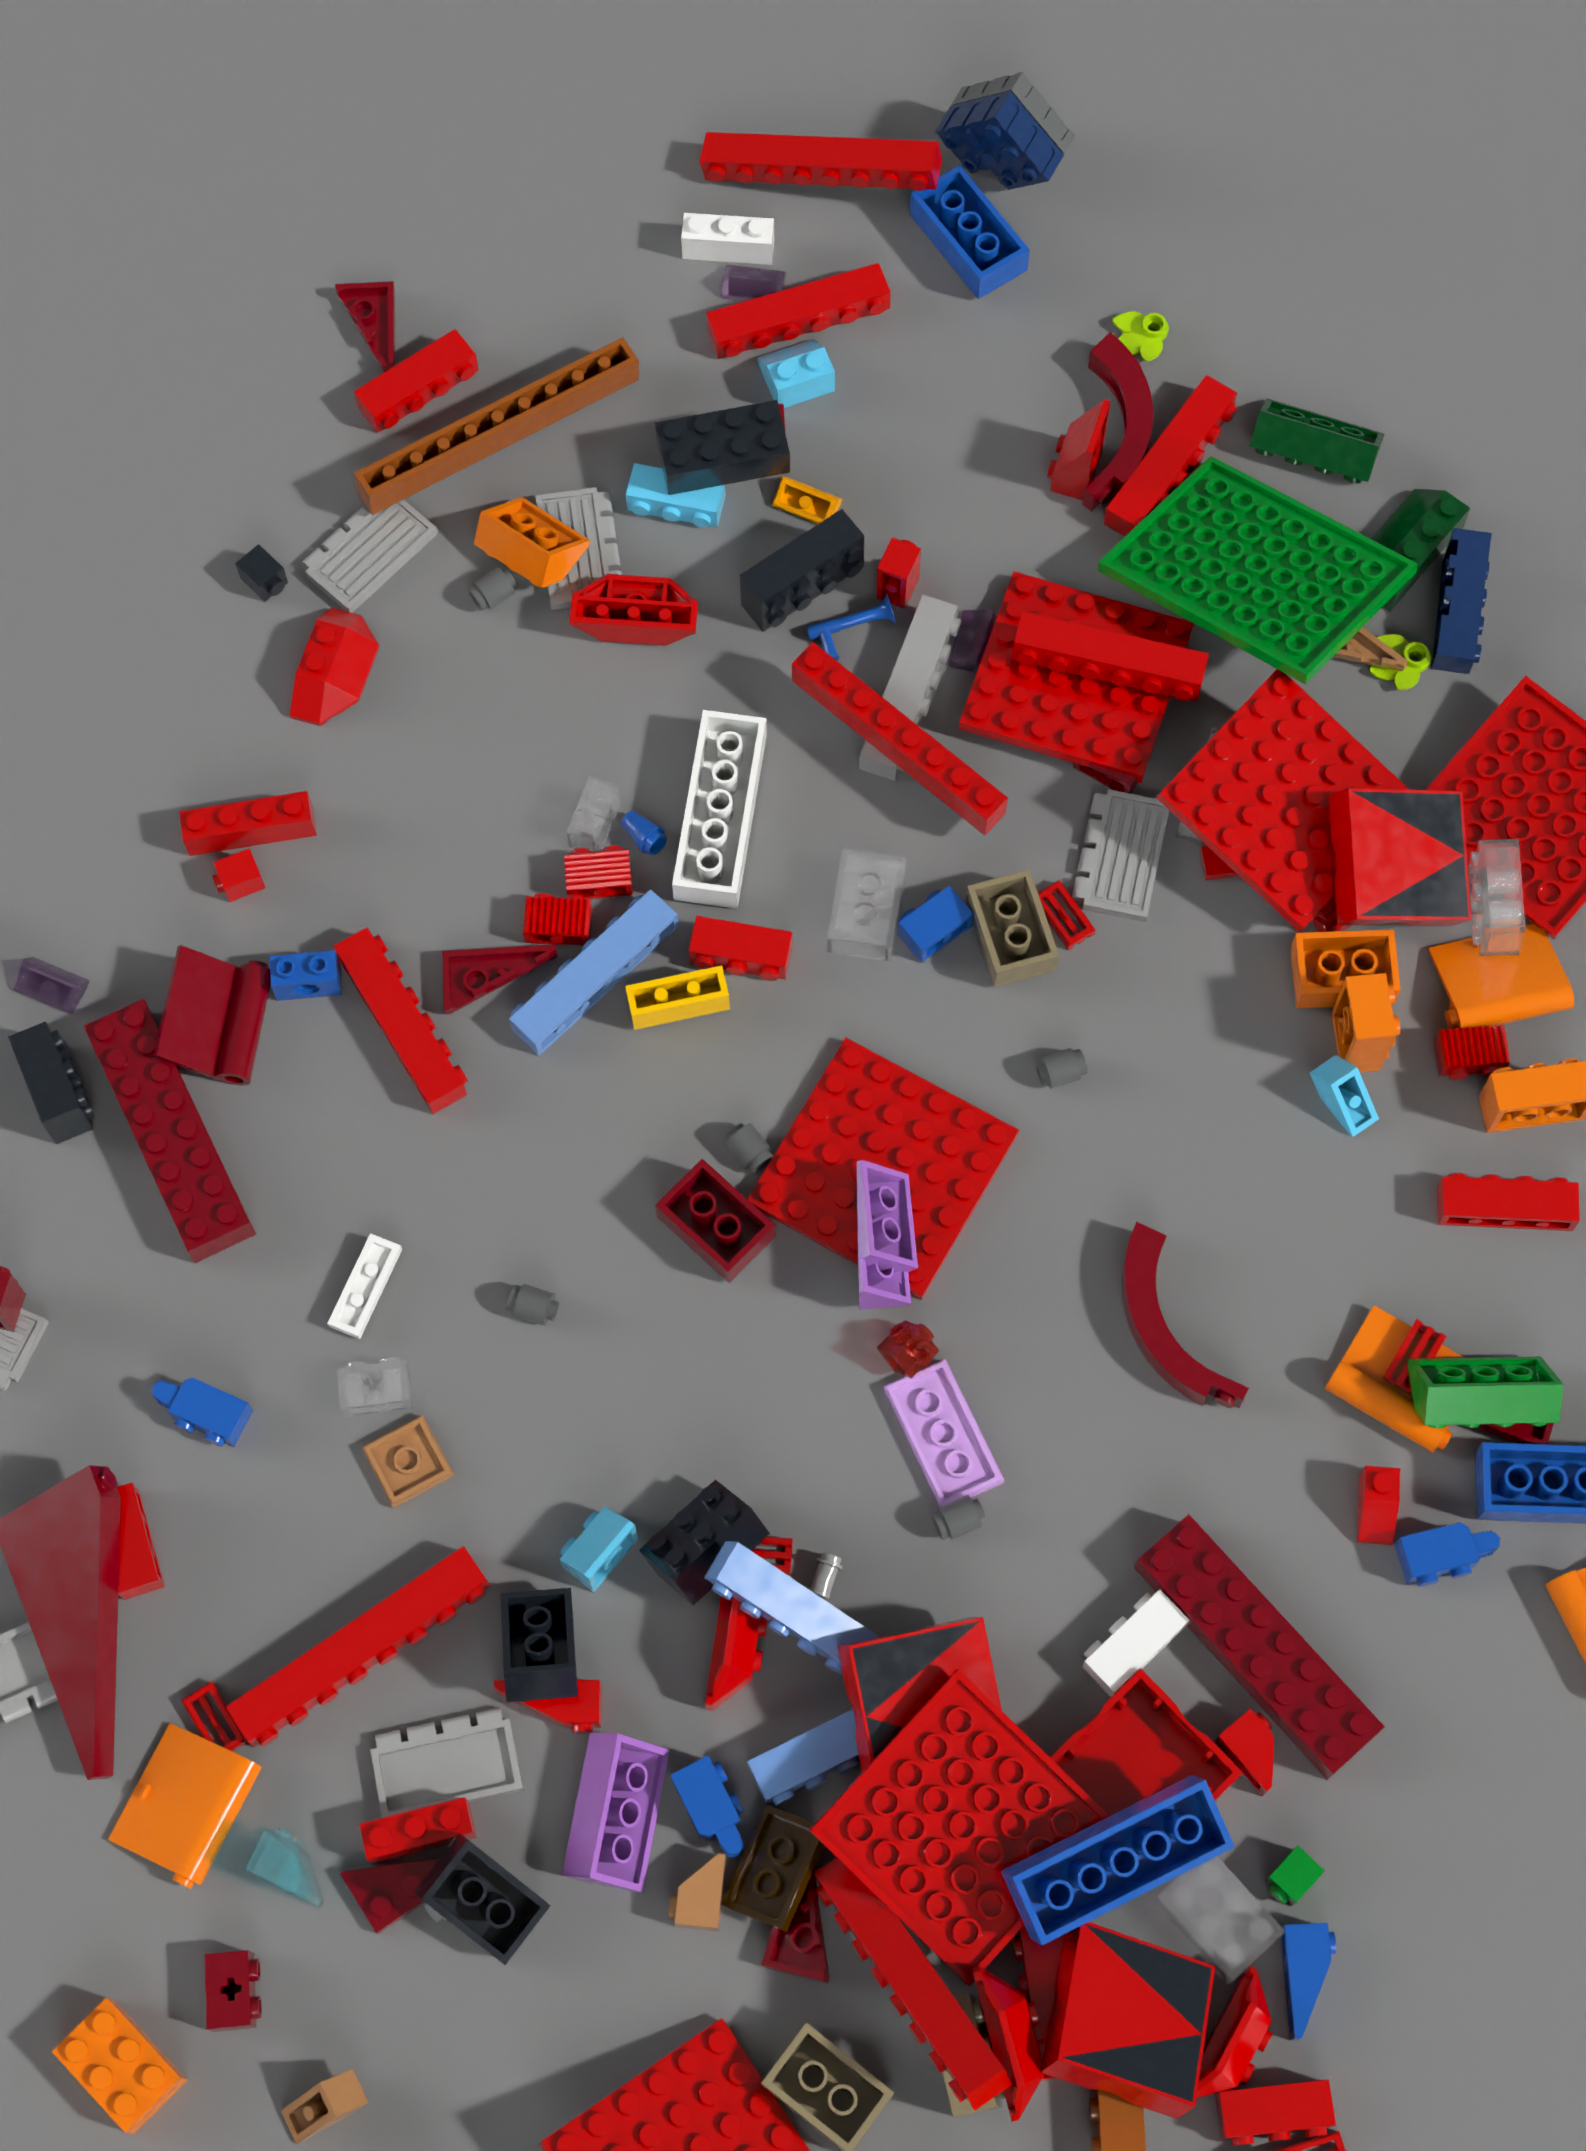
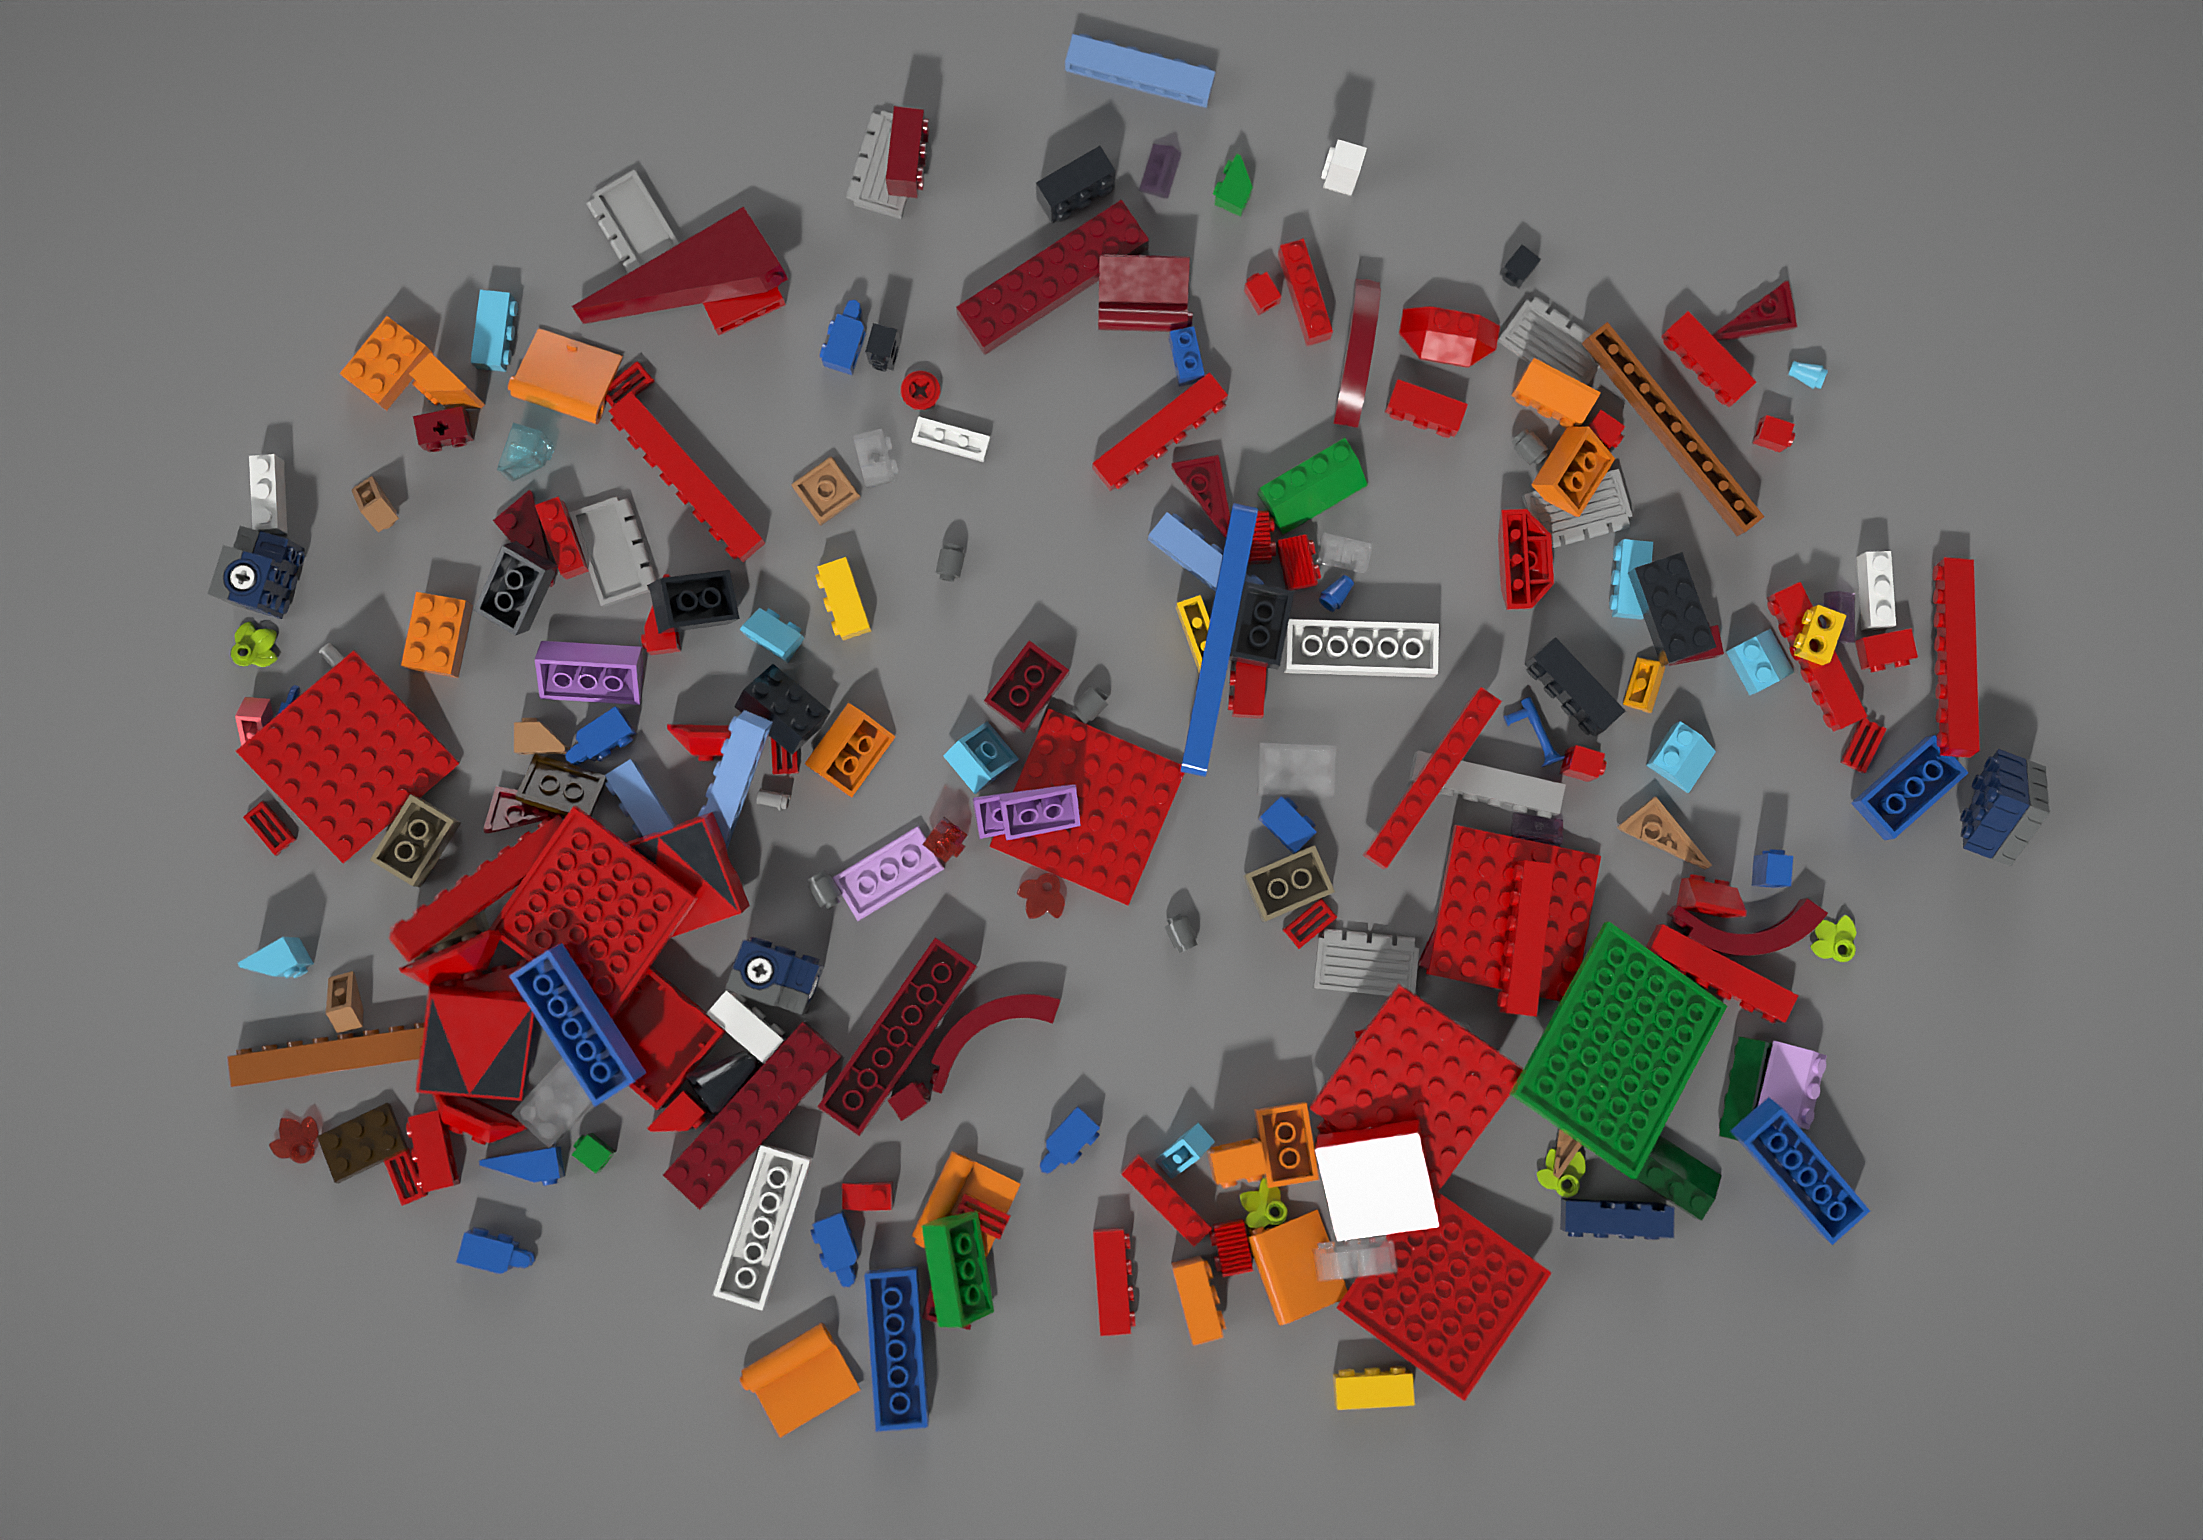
camera: 75 degrees right, 15 degrees up
(93, 890) = (1235, 189): none -> green slope
(97, 750) = (1343, 167): none -> white brick
(101, 1900) = (494, 331): none -> medium azure brick
(172, 1968) = (442, 385): none -> orange slope
(225, 1355) = (883, 347): none -> black brick
(294, 1304) = (921, 379): none -> red gear
(341, 760) = (1358, 353): none -> dark red arch
(423, 701) = (1426, 409): none -> red brick
(431, 549) = (1555, 394): none -> orange slope
(453, 277) = (1809, 374): none -> medium azure cone
(483, 497) = (1607, 429): none -> red brick
(501, 843) = (1313, 486): none -> green slope
(520, 323) = (1774, 433): none -> red brick
(531, 2028) = (437, 634): none -> orange brick
(561, 1450) = (842, 599): none -> yellow brick
(677, 913) = (1261, 625): none -> black brick
(689, 965) = (1219, 640): none -> blue beam
(769, 1464) = (850, 750): none -> orange slope
(778, 289) = (1825, 638): none -> yellow brick
(800, 237) = (1886, 649): none -> red brick
(802, 1293) = (980, 757): none -> medium azure slope
(899, 470) = (1681, 756): none -> medium azure slope
(914, 274) = (1872, 749): none -> red tile
(988, 503) = (1658, 828): none -> medium nougat wing
(1000, 1238) = (1041, 900): none -> clear red plate
(1051, 383) = (1772, 869): none -> blue brick
(1069, 1587) = (775, 975): none -> piece
(1167, 1438) = (897, 1036): none -> dark red brick
(1208, 1683) = (722, 1080): none -> black cone
(1254, 1429) = (909, 1099): none -> dark red brick
(1314, 393) = (1794, 1081): none -> lavender slope
(1320, 1237) = (1068, 1139): none -> blue hinge
(1406, 1124) = (1166, 1200): none -> red brick
(1412, 1646) = (762, 1226): none -> white brick
(1417, 392) = (1800, 1170): none -> blue brick
(1419, 1013) = (1260, 1204): none -> lime plate
(1425, 2036) = (492, 1252): none -> blue hinge

